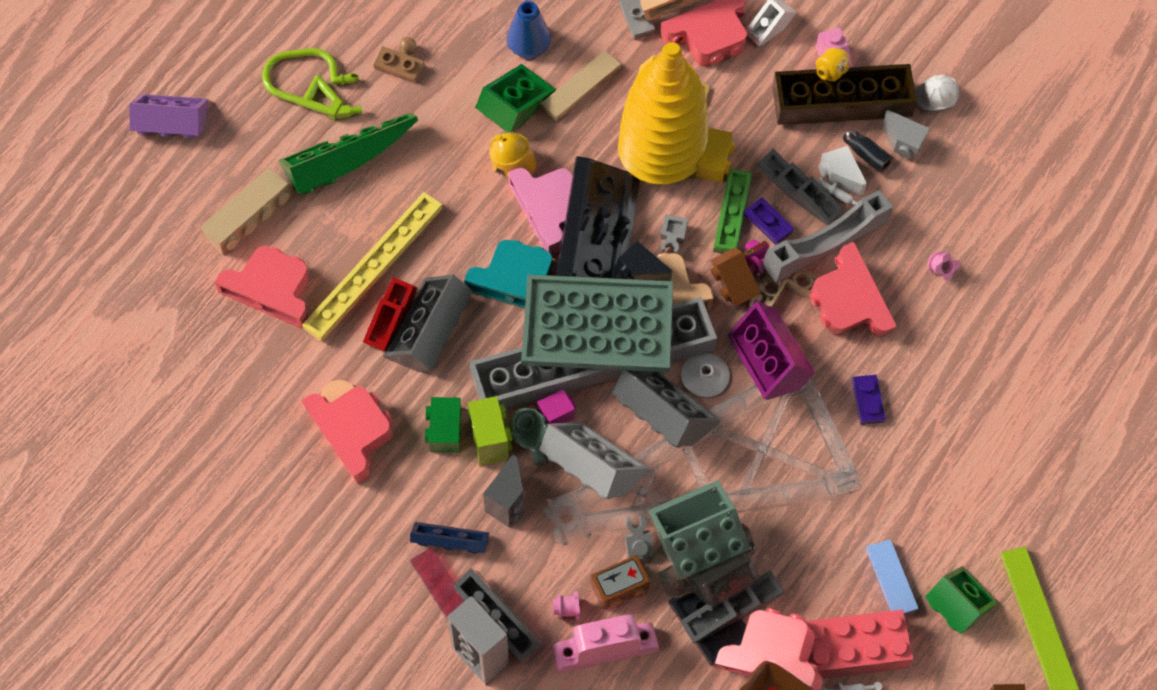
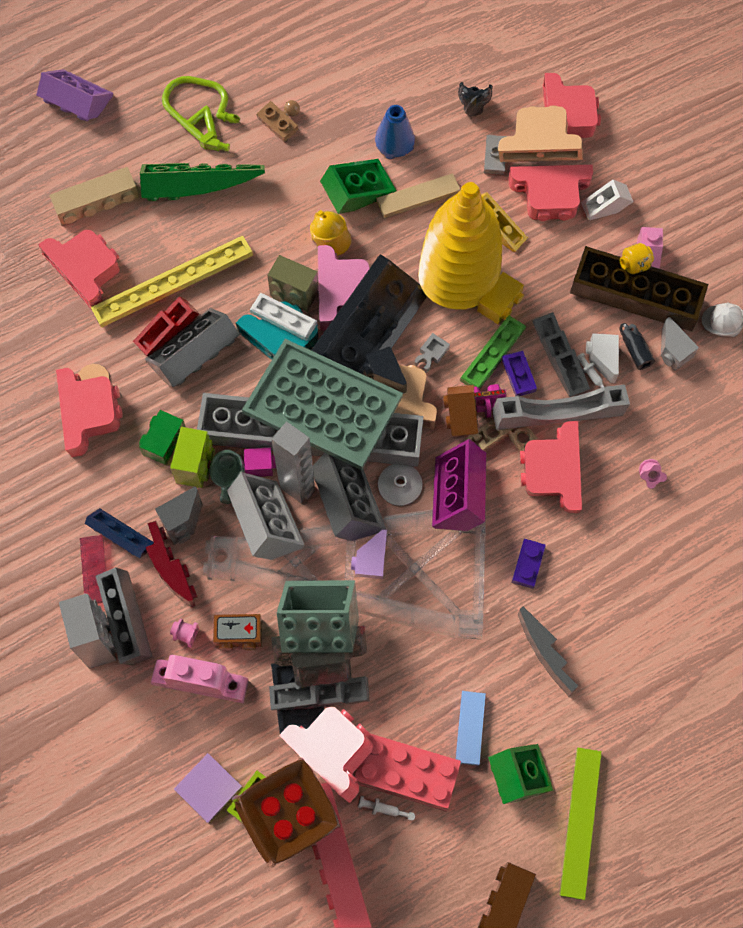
camera: 25 degrees right, 5 degrees up
(502, 218) = (293, 283): none -> olive brick
(510, 255) = (283, 316): none -> white tile
(525, 555) = (171, 572): none -> dark red slope
(608, 388) = (294, 462): none -> light grey brick
(638, 541) = (269, 601): light grey plate -> none
(720, 454) = (370, 557): none -> lavender slope
(919, 469) = (541, 643): none -> dark grey slope

